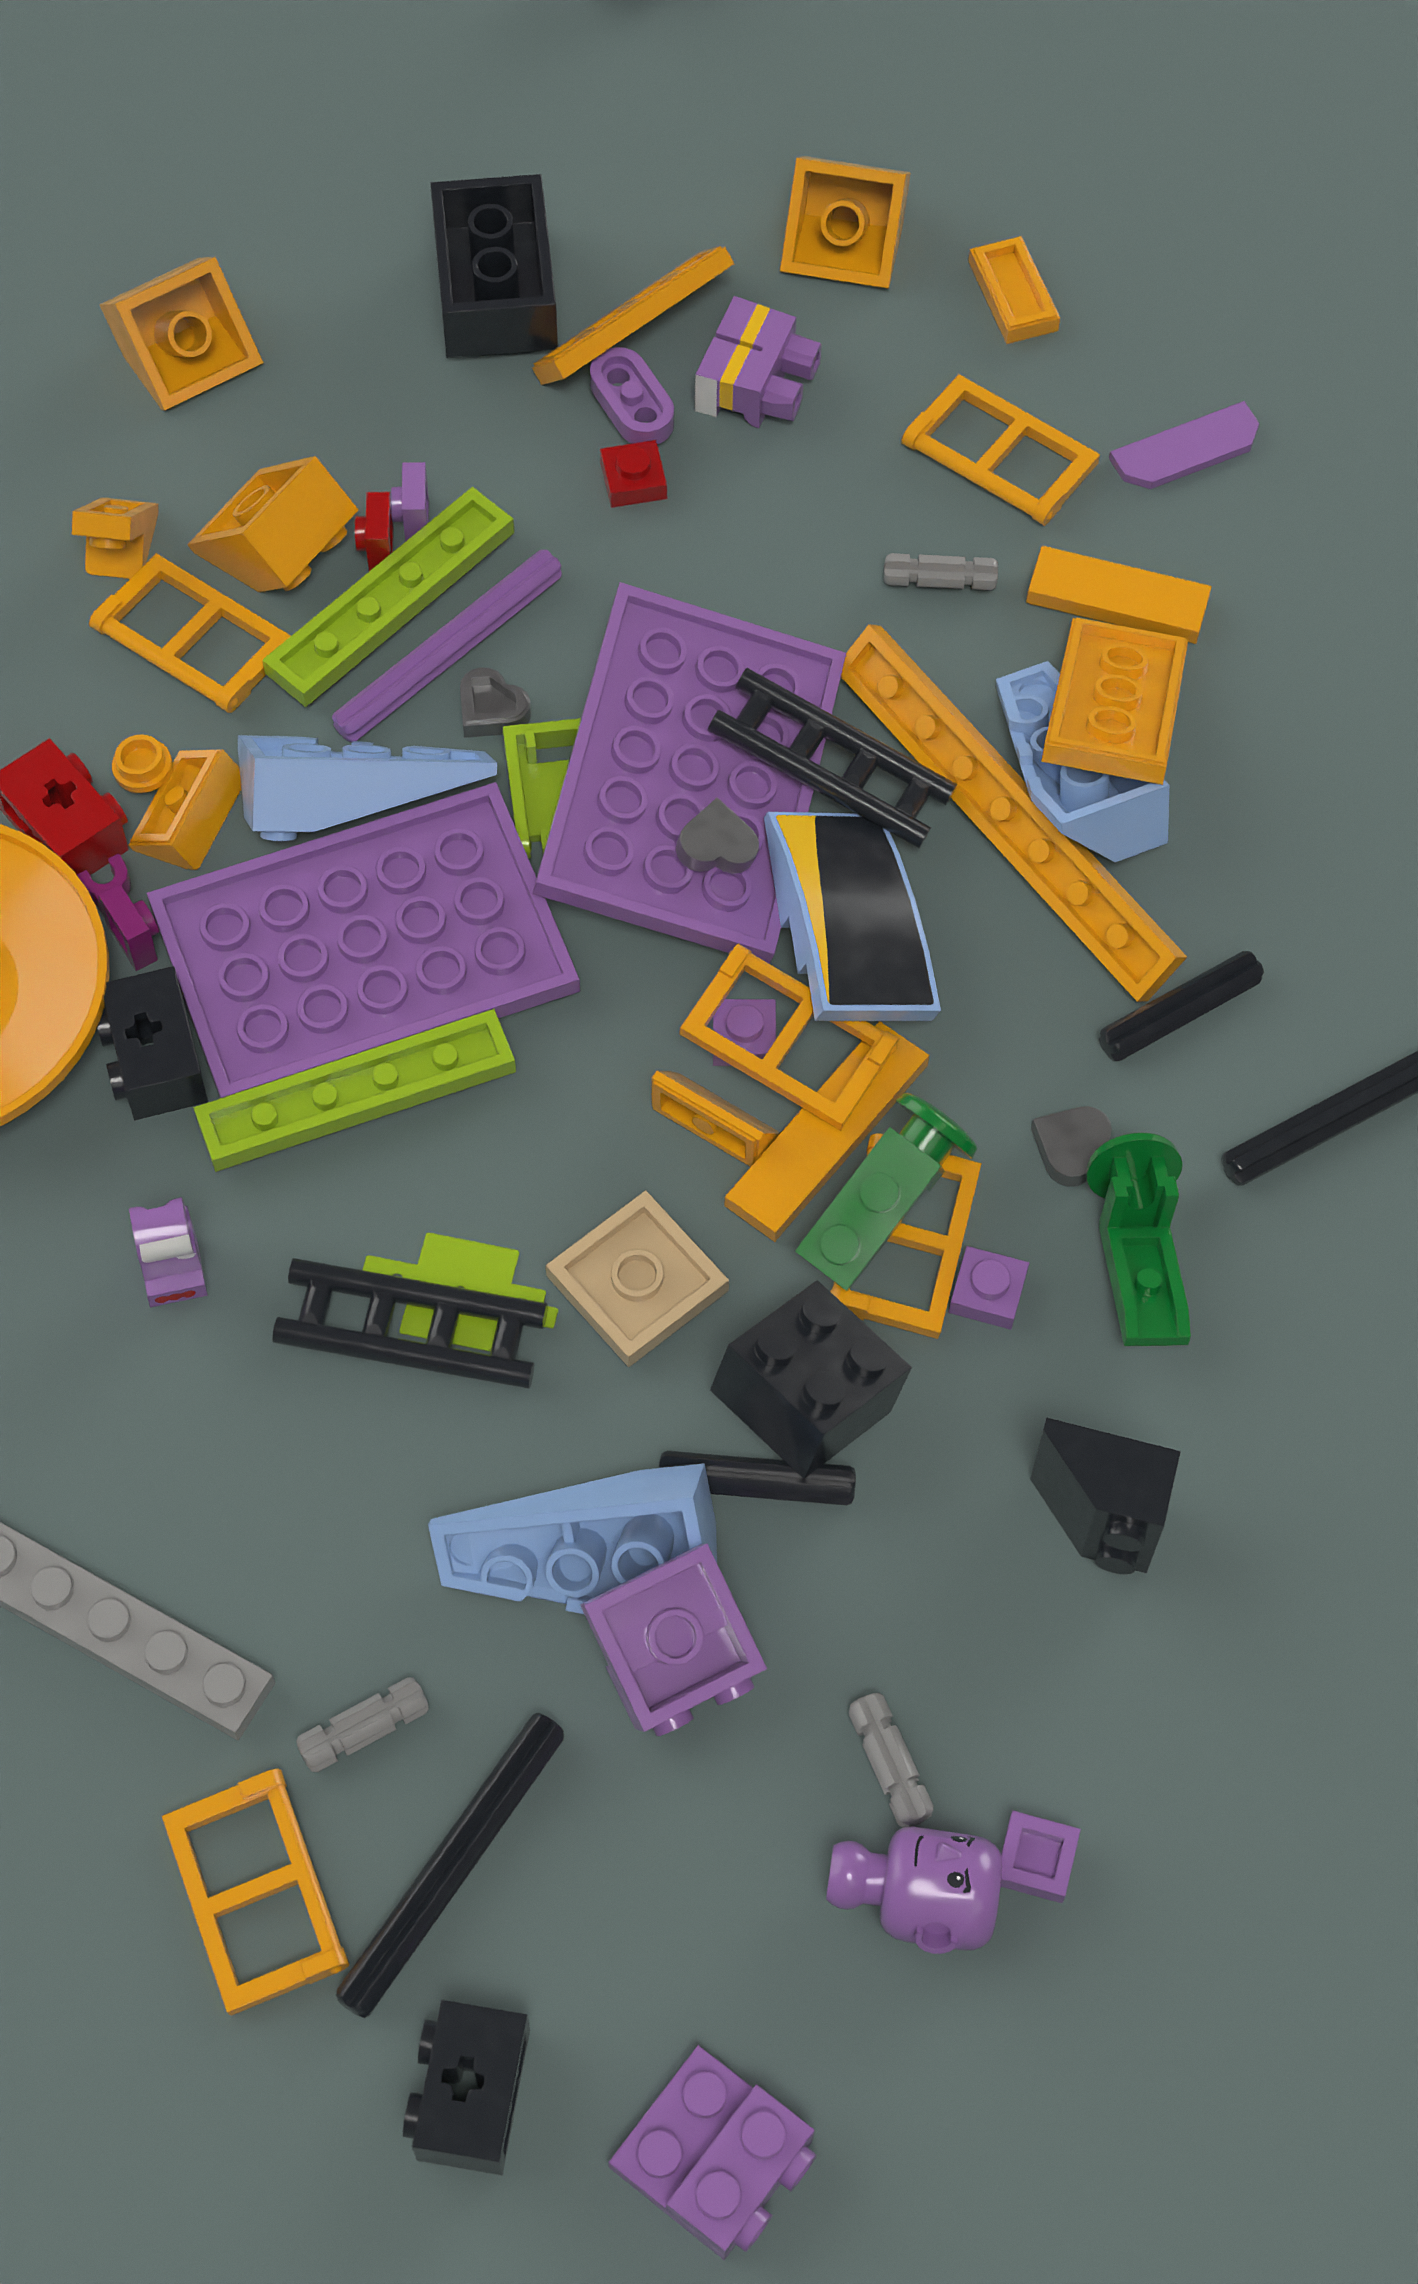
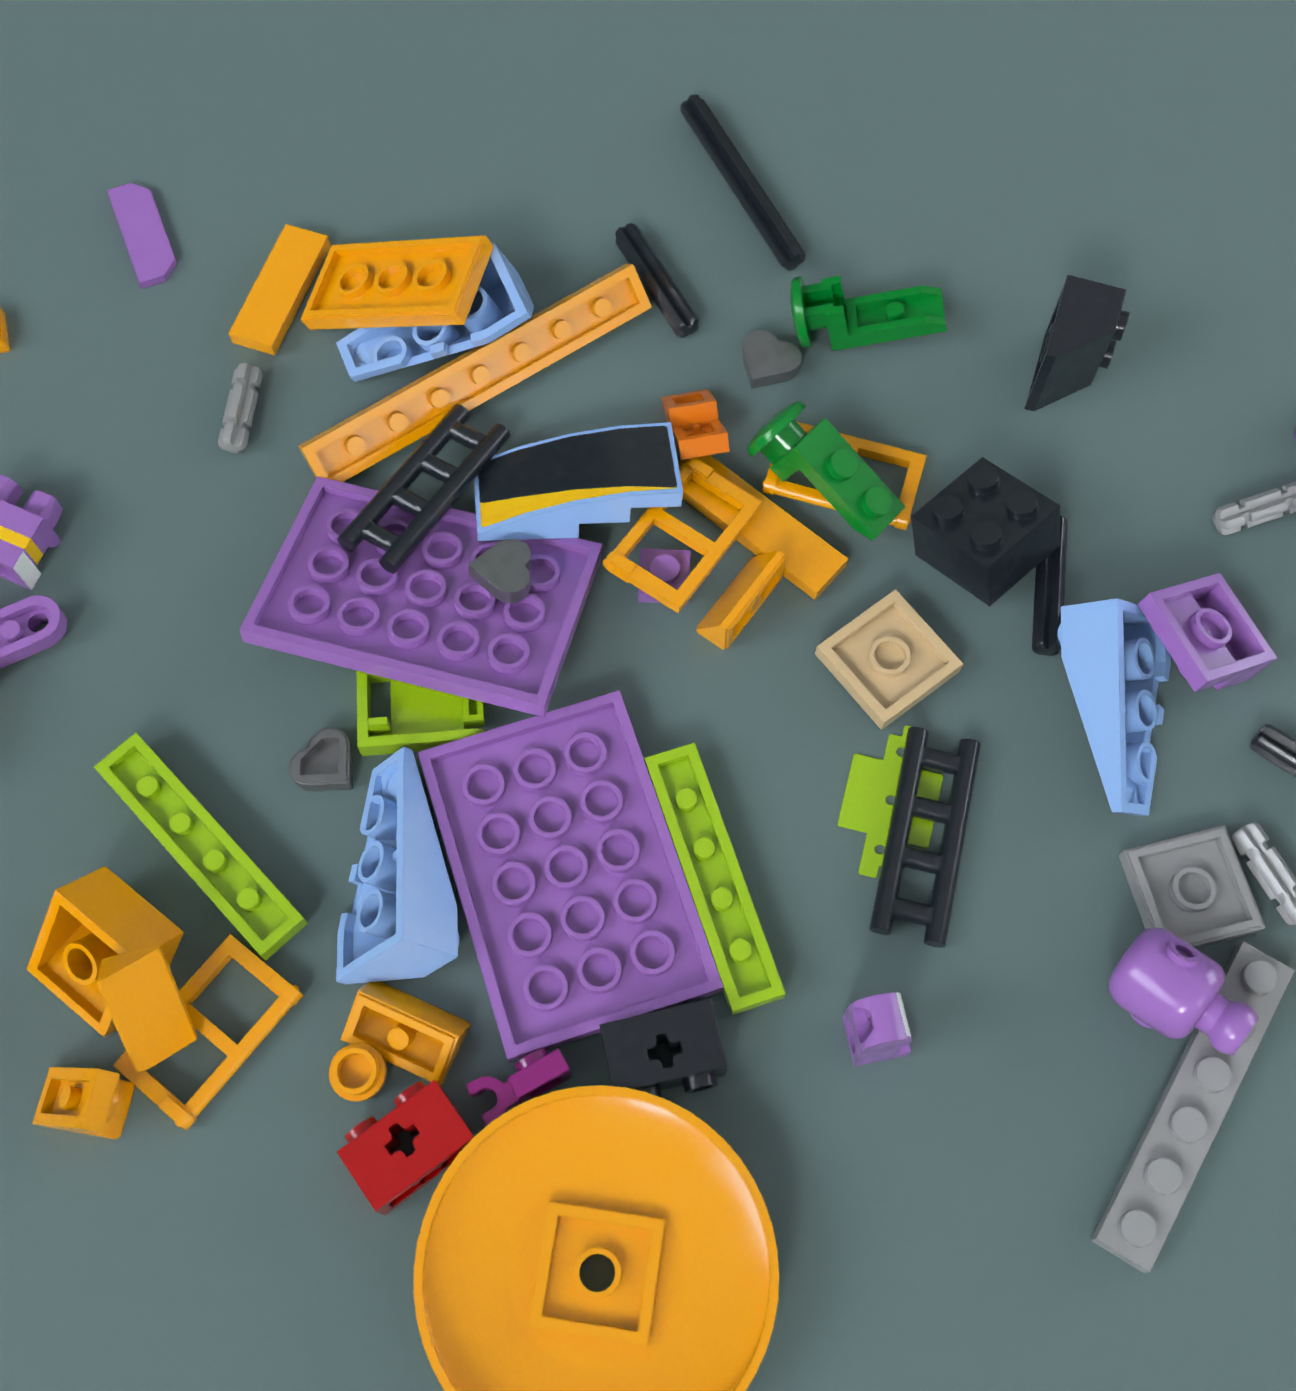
camera: 85 degrees left, 5 degrees up
(197, 552) = (145, 1005): none -> light orange slope
(201, 1571) = (1177, 989): none -> medium lavender piece
(341, 1627) = (1192, 887): none -> light grey tile
(375, 530) = (129, 852): red plate -> none
(411, 500) = (101, 820): medium lavender plate -> none
(446, 645) = (260, 798): medium lavender axle -> none
(633, 473) = (94, 638): red plate -> none
(959, 1052) = (695, 424): none -> orange slope
(988, 1287) = (888, 420): medium lavender plate -> none
(1020, 424) = (101, 342): light orange window -> none

